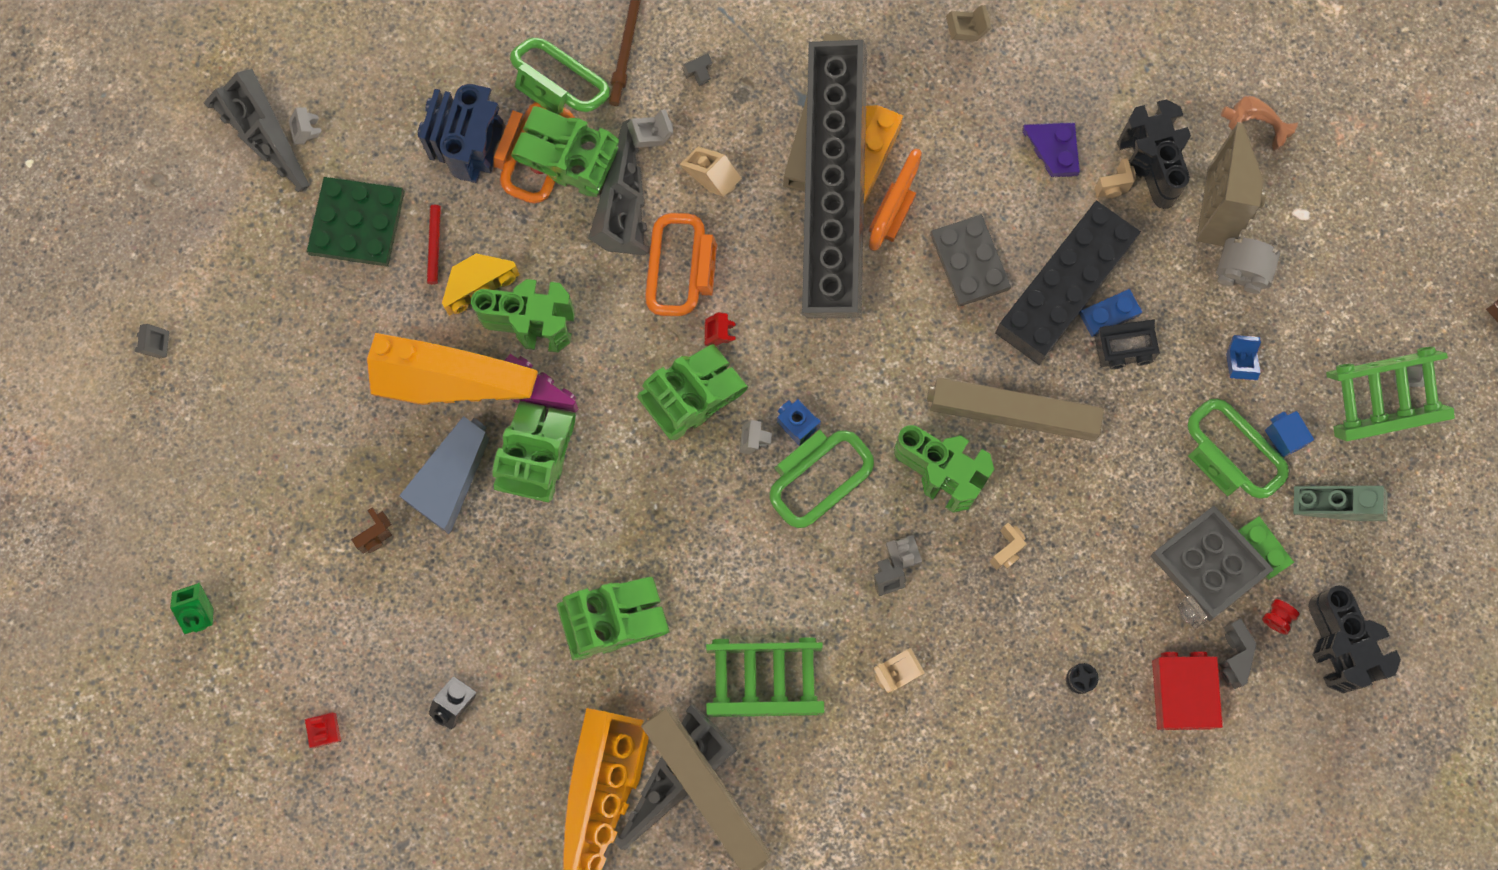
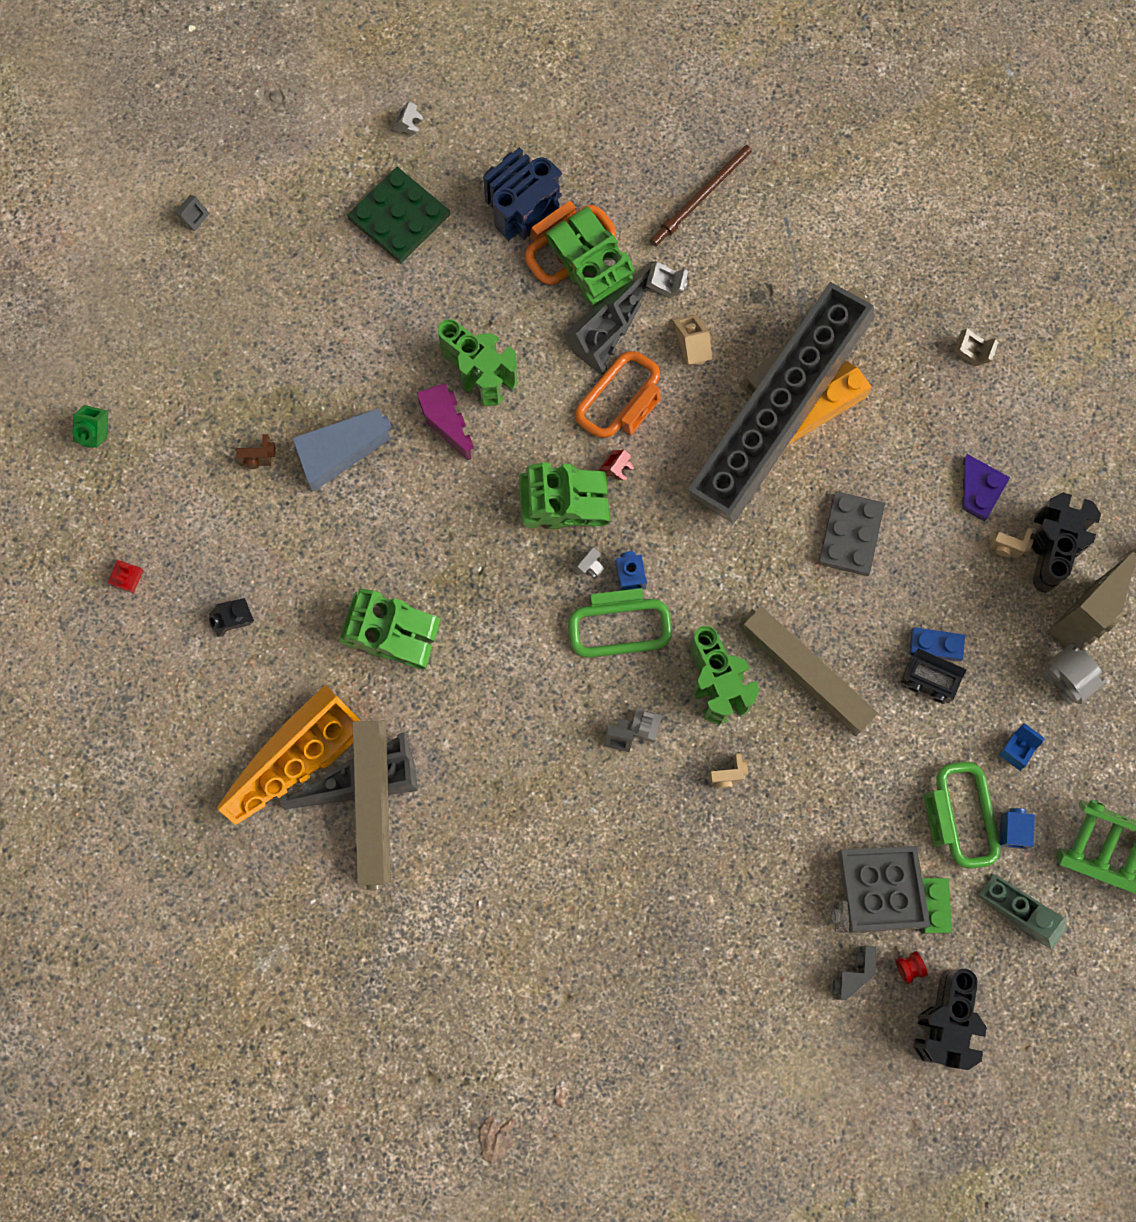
camera: 30 degrees right, 0 degrees up
(250, 113) = (374, 86): dark grey wedge -> none
(433, 244) = (445, 267): red bar -> none
(437, 373) = (381, 364): light orange wedge -> none
(476, 274) = (460, 307): yellow slope -> none
(533, 451) = (413, 467): bright green connector -> none
(547, 92) = (606, 202): bright green bar -> none
(698, 68) = (736, 253): dark grey tile -> none
(750, 703) = (449, 762): bright green fence -> none
(895, 204) = (819, 452): orange bar -> none
(898, 671) = (579, 811): tan bracket -> none
(1067, 282) = (917, 598): black brick -> none
(1087, 676) = (720, 906): black wheel -> none
(1187, 692) = (795, 975): red brick -> none

